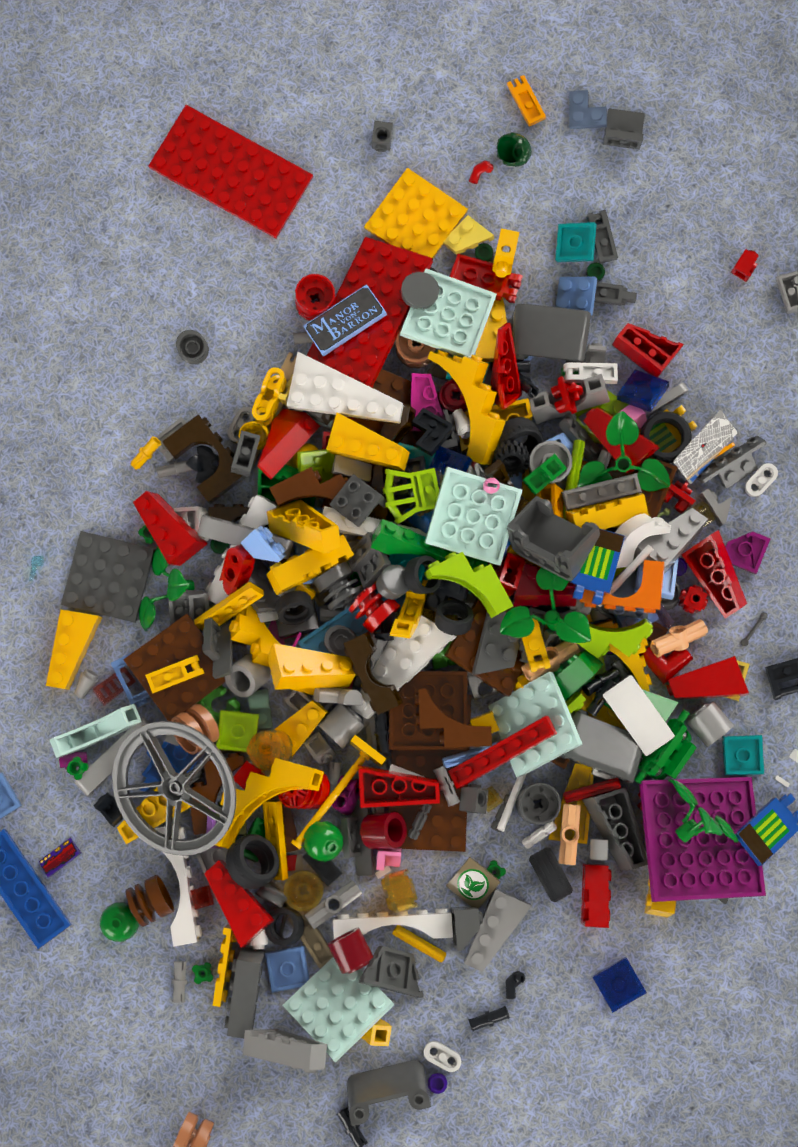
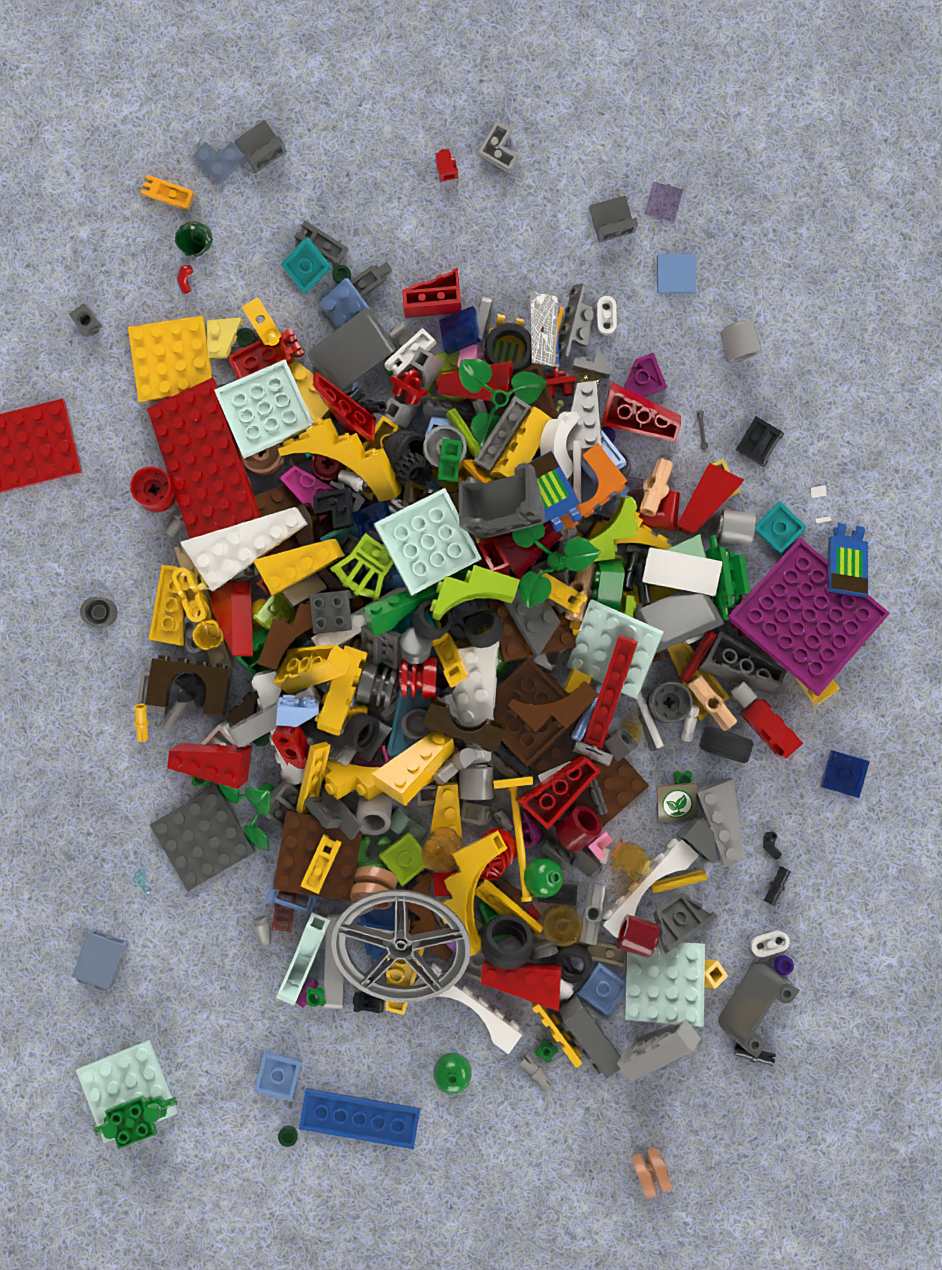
camera: 45 degrees left, 5 degrees up
(59, 857) = (365, 1070): slope -> none
(70, 646) = (224, 914): yellow wedge -> none
(145, 902) = (460, 1039): reddish brown wheel -> none
(202, 897) = (494, 999): clear red slope -> none
(240, 393) = (168, 610): none -> yellow wing
(245, 453) = (215, 654): dark grey brick -> none
(345, 320) = (192, 485): tile -> none
(420, 290) = (226, 410): dark grey tile -> none
(491, 490) = (422, 510): bright pink hinge -> none
(686, 599) = (637, 455): red brick -> none
(691, 828) = (814, 601): green plant -> none

